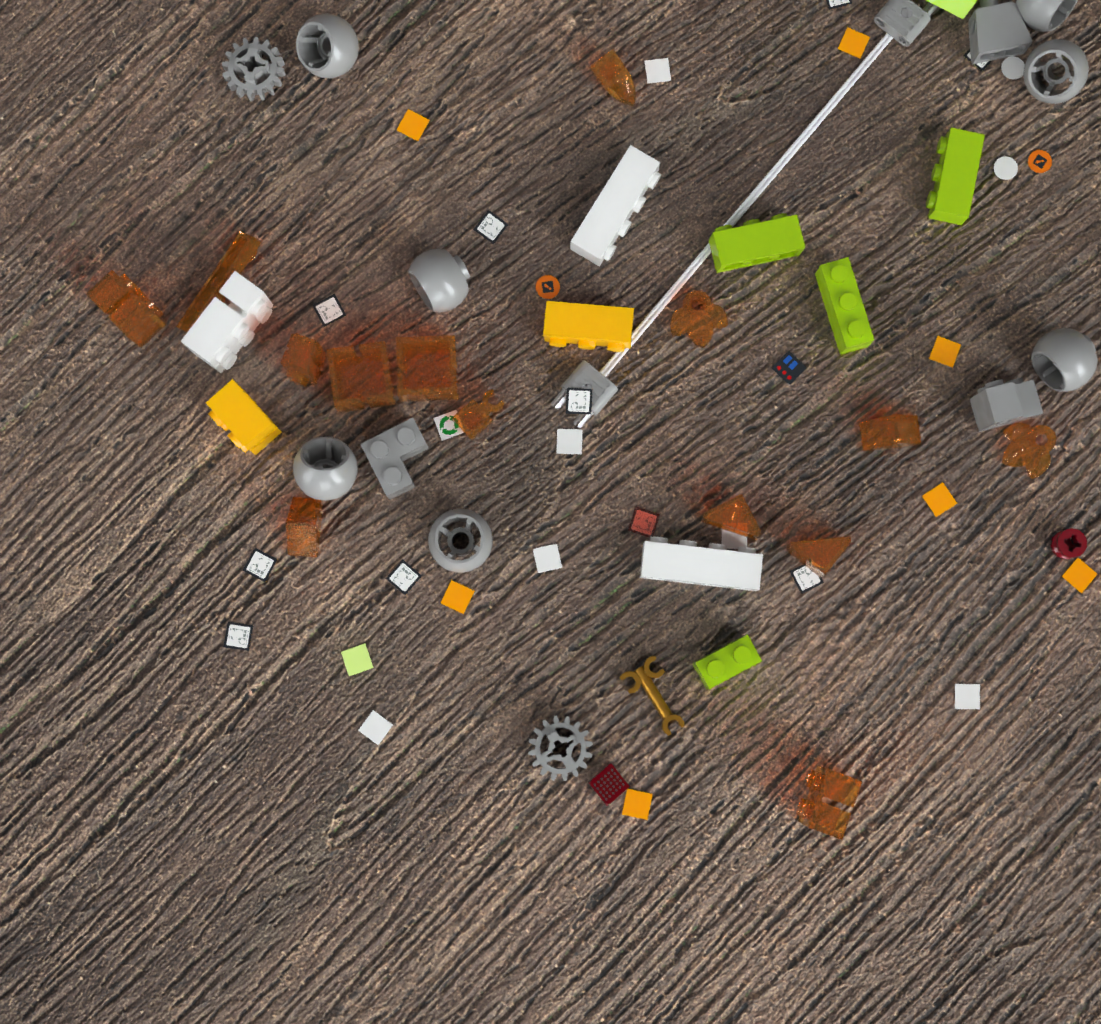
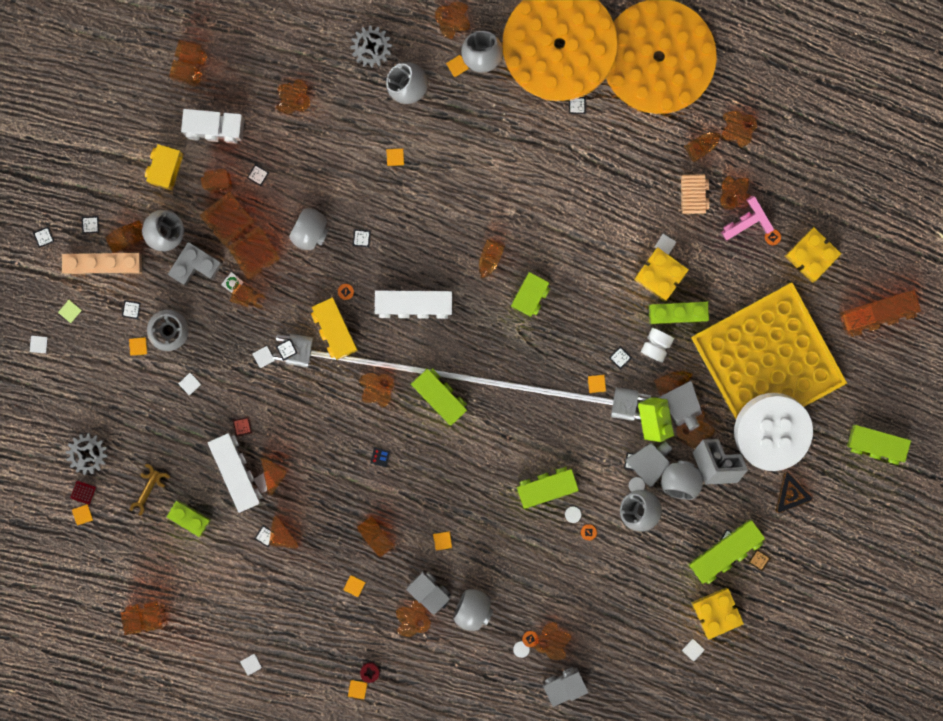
camera: 55 degrees right, 5 degrees up
(235, 259) = (234, 104): clear orange plate -> none
(254, 209) = (290, 97): none -> clear orange plate
(317, 577) = (102, 263): none -> light nougat arch
(657, 70) = (512, 279): white sticker -> none
(692, 54) = (530, 294): none -> lime brick
(844, 306) = (431, 468): lime brick -> none

